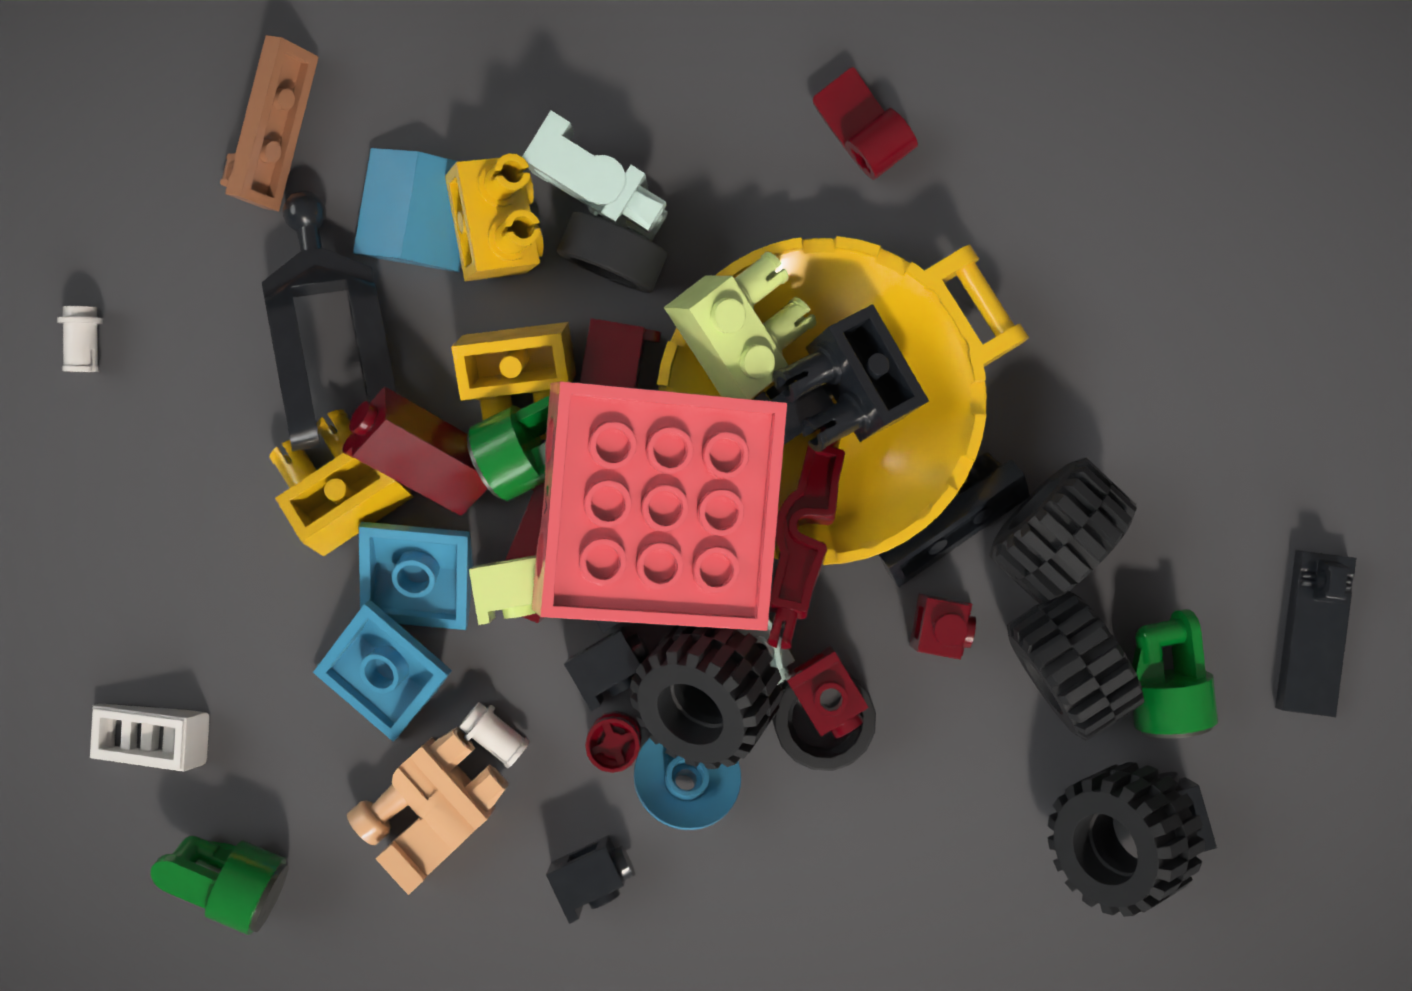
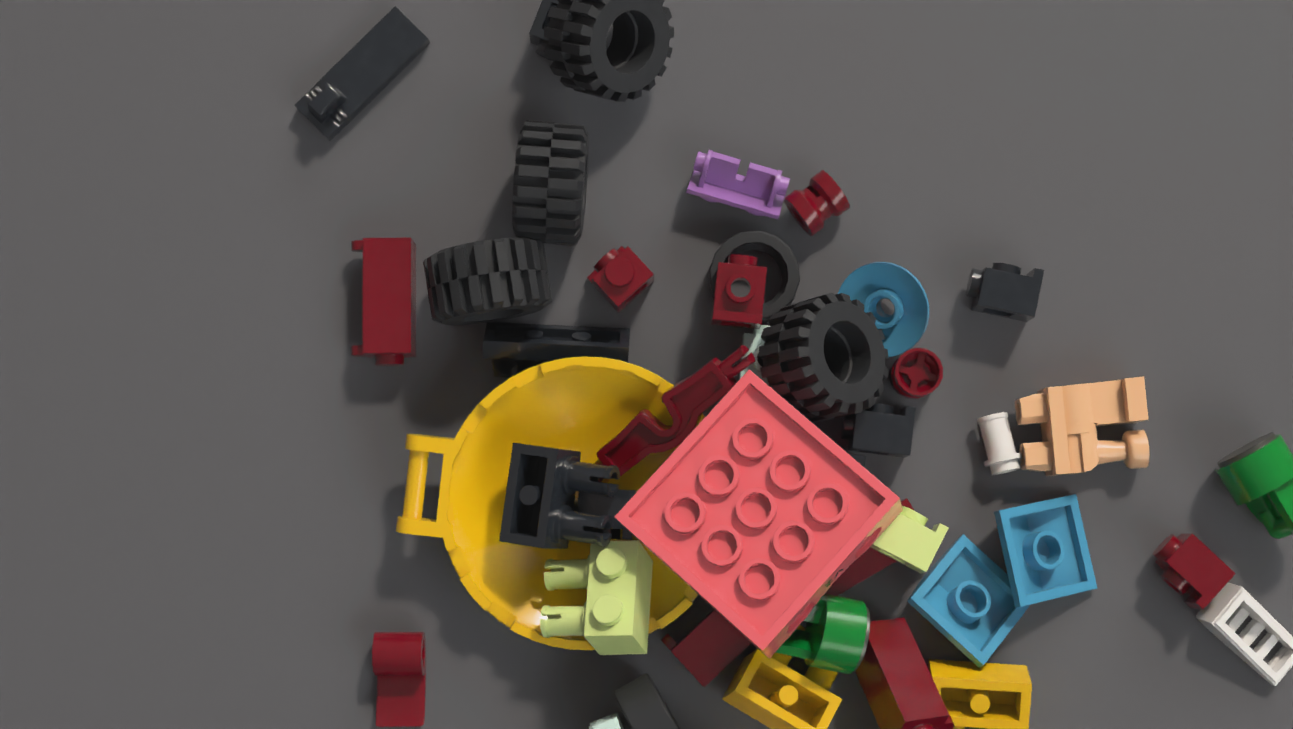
camera: 145 degrees left, 5 degrees down
(239, 753) = (1192, 569): none -> dark red brick
(818, 828) = (816, 202): none -> dark red wheel
(922, 779) = (717, 181): none -> medium lavender hinge
(1135, 447) = (388, 300): none -> dark red brick
(1178, 699) = (500, 104): green piece -> none

